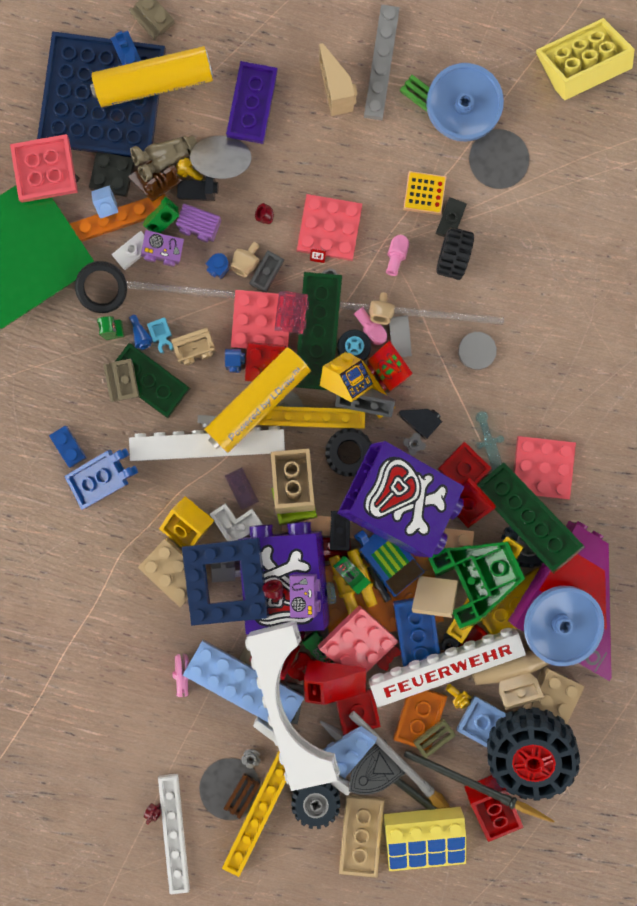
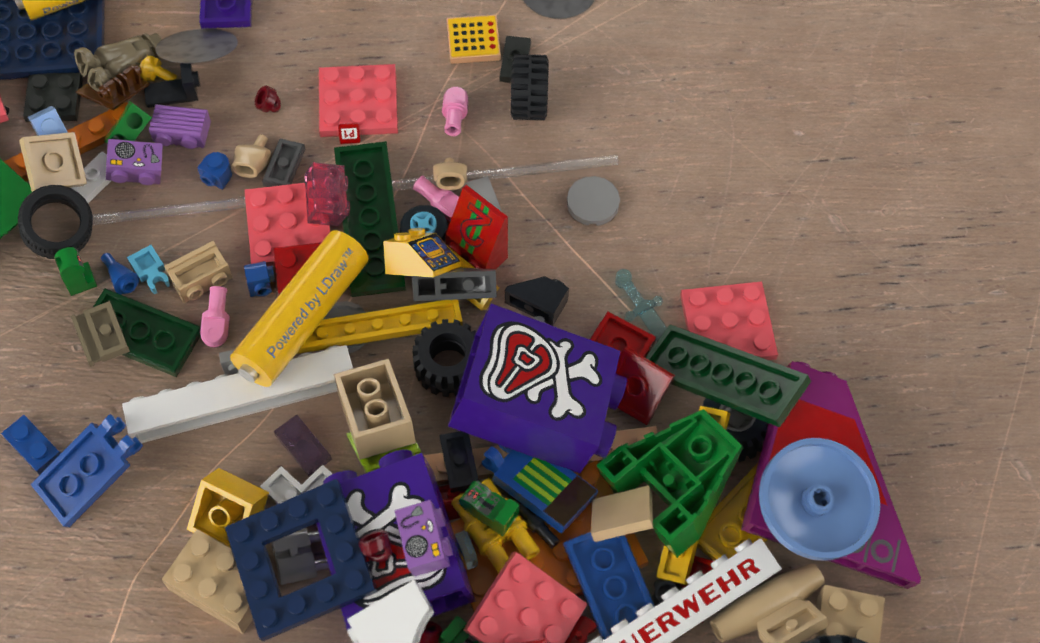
camera: 15 degrees left, 25 degrees down
(104, 240) = (53, 160): none -> tan bracket
(199, 385) = (215, 319): none -> bright pink arm

